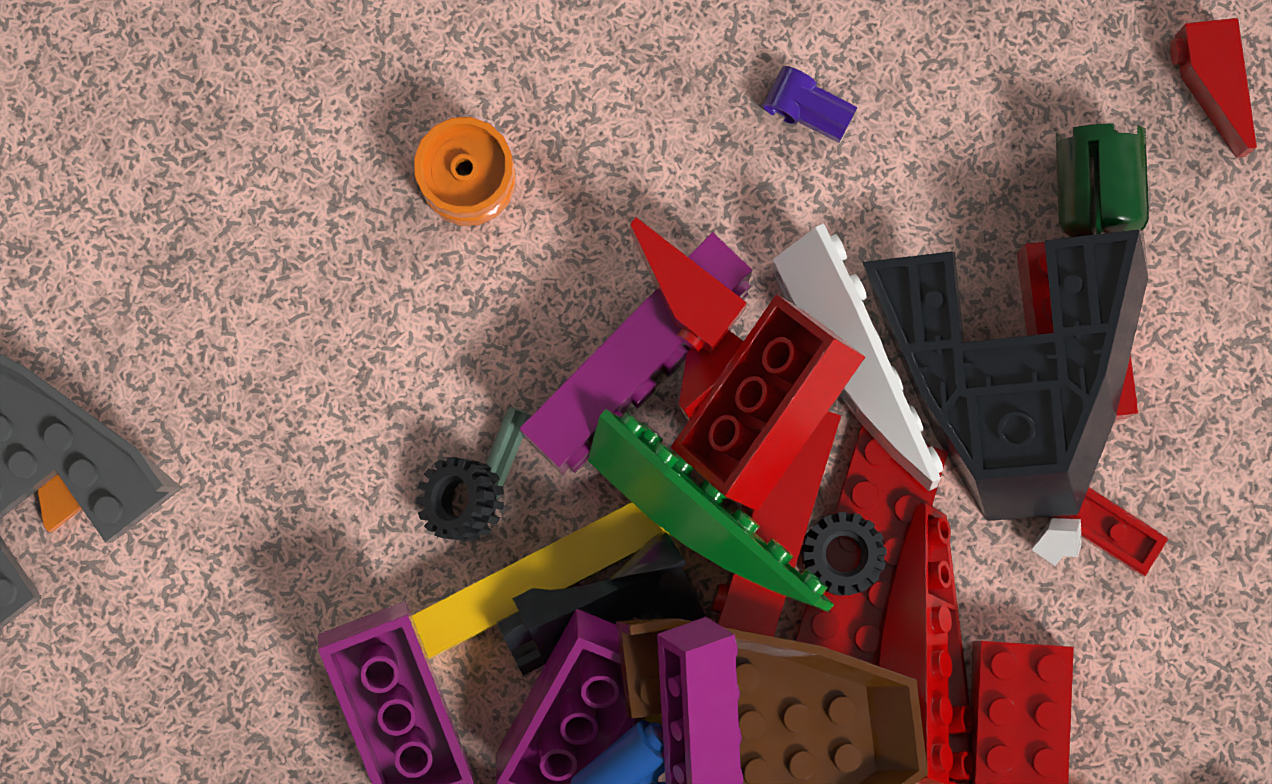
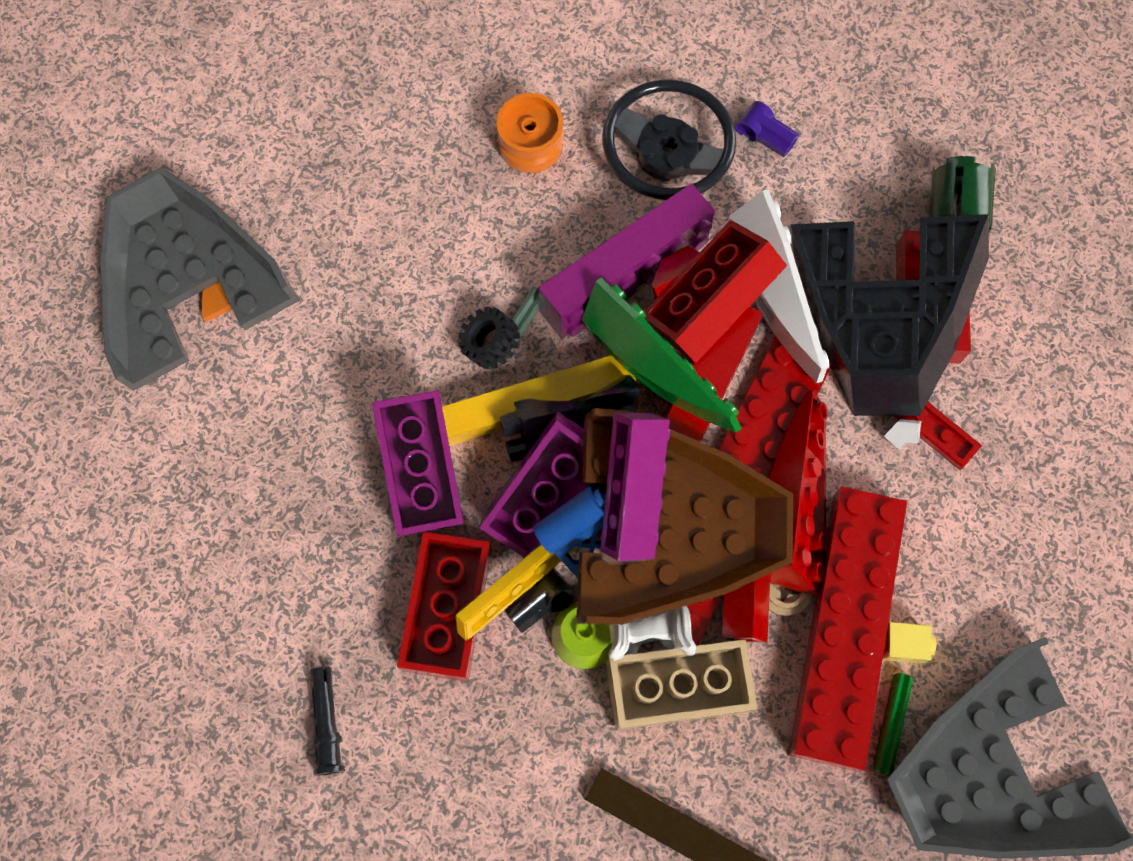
camera: 10 degrees right, 10 degrees down
(636, 148) = (649, 138): none -> black piece
(692, 296) = (673, 218): red slope -> none
(859, 530) = (769, 408): black tyre -> none
(1216, 75) = (1046, 153): red slope -> none

